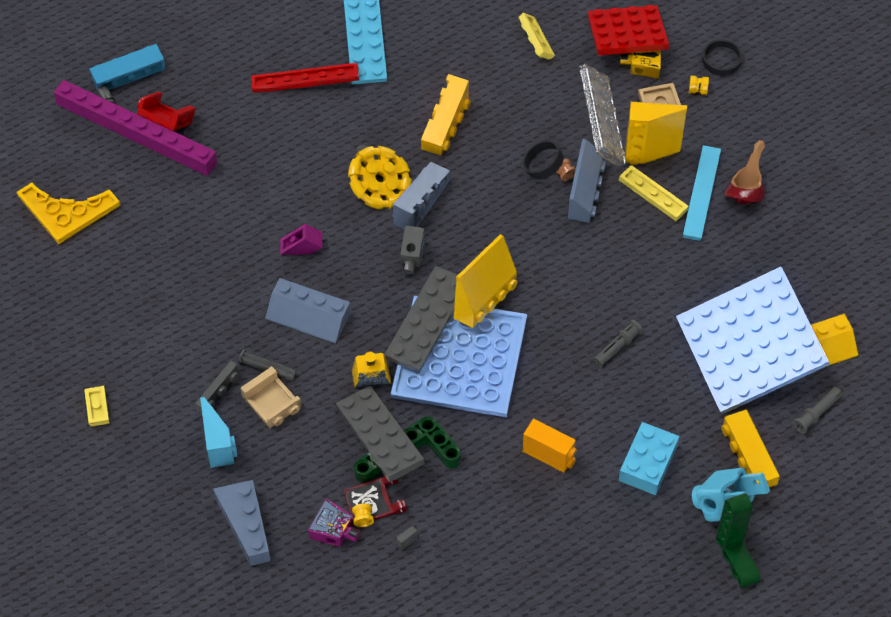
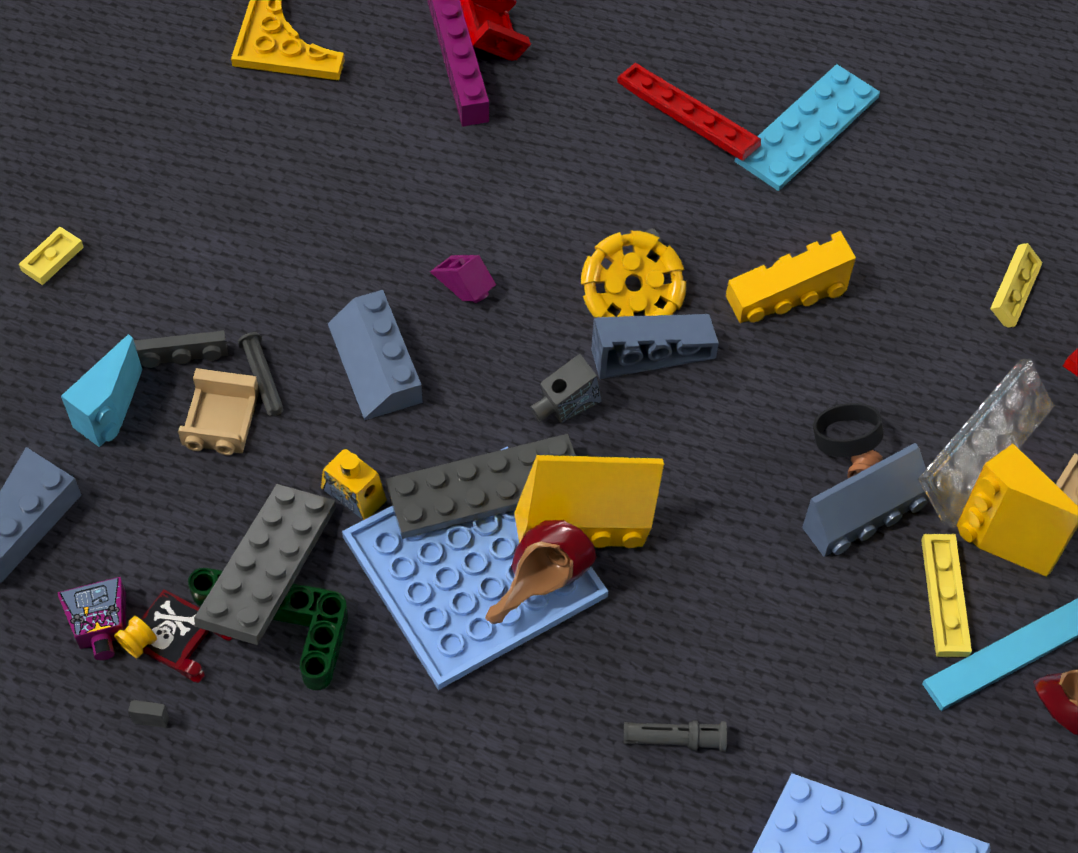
camera: 45 degrees right, 0 degrees up
(496, 322) = (544, 561): none -> hat
(549, 446) = (430, 774): light orange brick -> none

